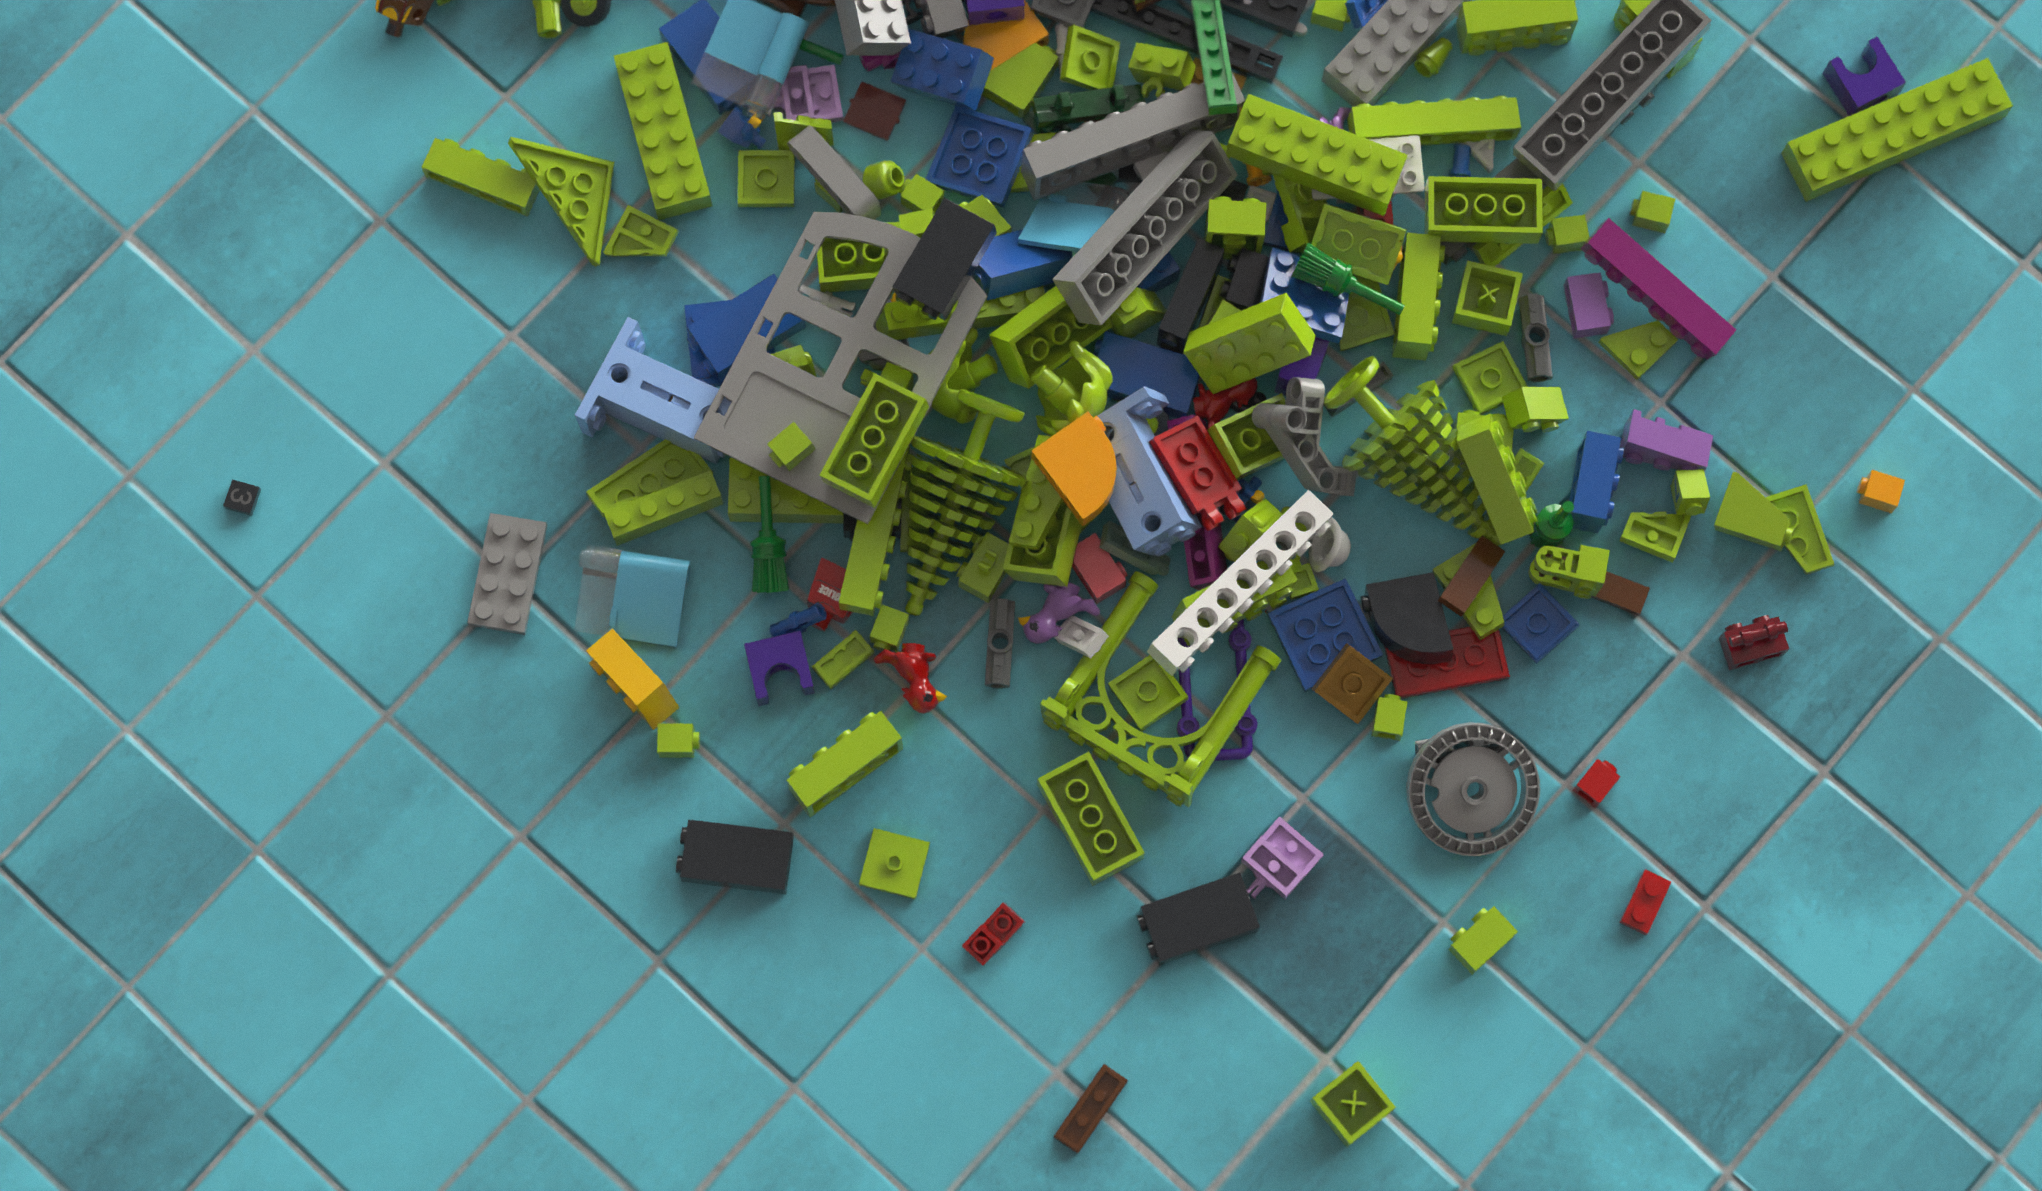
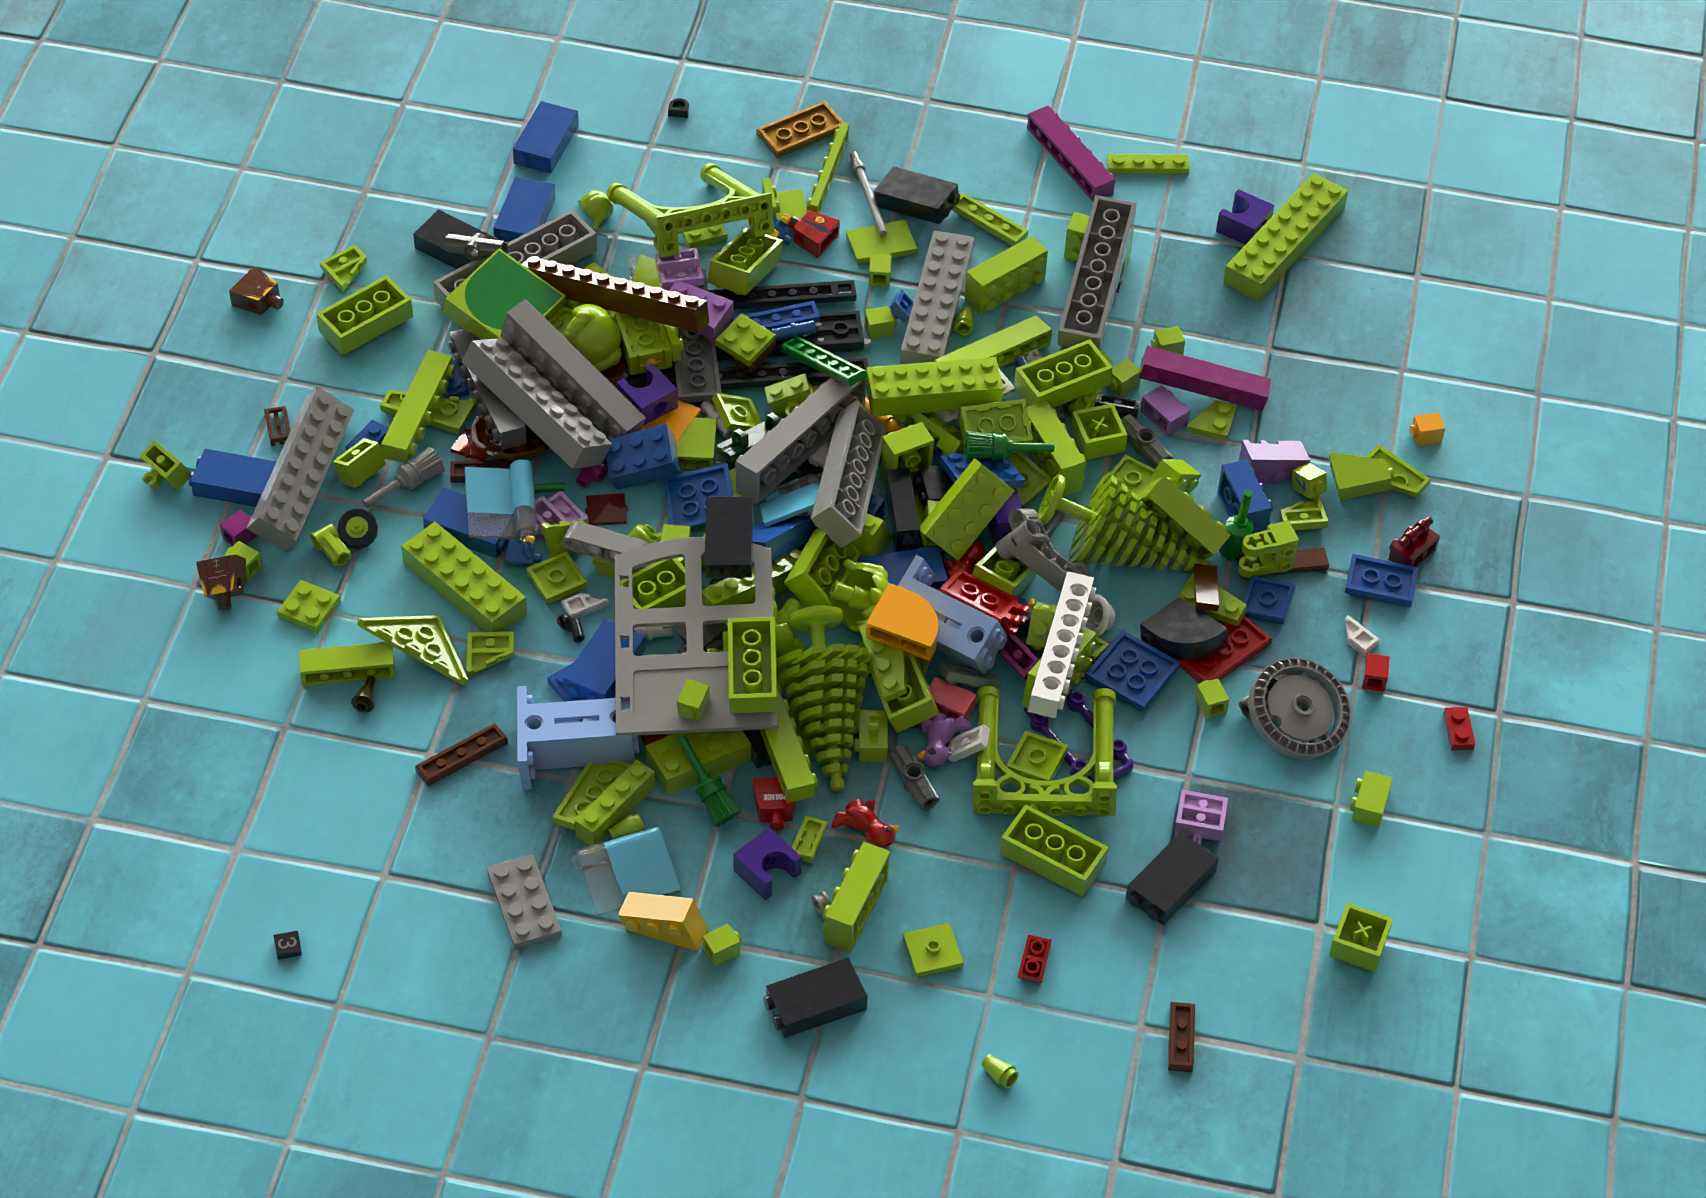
camera: 30 degrees left, 25 degrees down
(477, 230) = (364, 699): none -> dark brown cone
(484, 76) = (308, 606): none -> lime plate
(542, 354) = (461, 754): none -> reddish brown tile
(661, 543) = (627, 826): none -> lime cone
(749, 249) = (572, 625): none -> black arm
(774, 228) = (583, 605): none -> white tile
(799, 620) = (764, 822): blue pin -> none
(809, 745) = (820, 902): none -> light grey bush
(874, 1046) = (1001, 1072): none -> lime cone
(889, 629) = (828, 802): lime brick -> none
(1352, 683) = (1173, 686): pearl gold plate -> none
(1535, 271) = (1123, 406): none -> black brick
(1612, 725) = (1360, 637): none -> white tile
(1686, 666) = (1381, 580): none -> blue plate

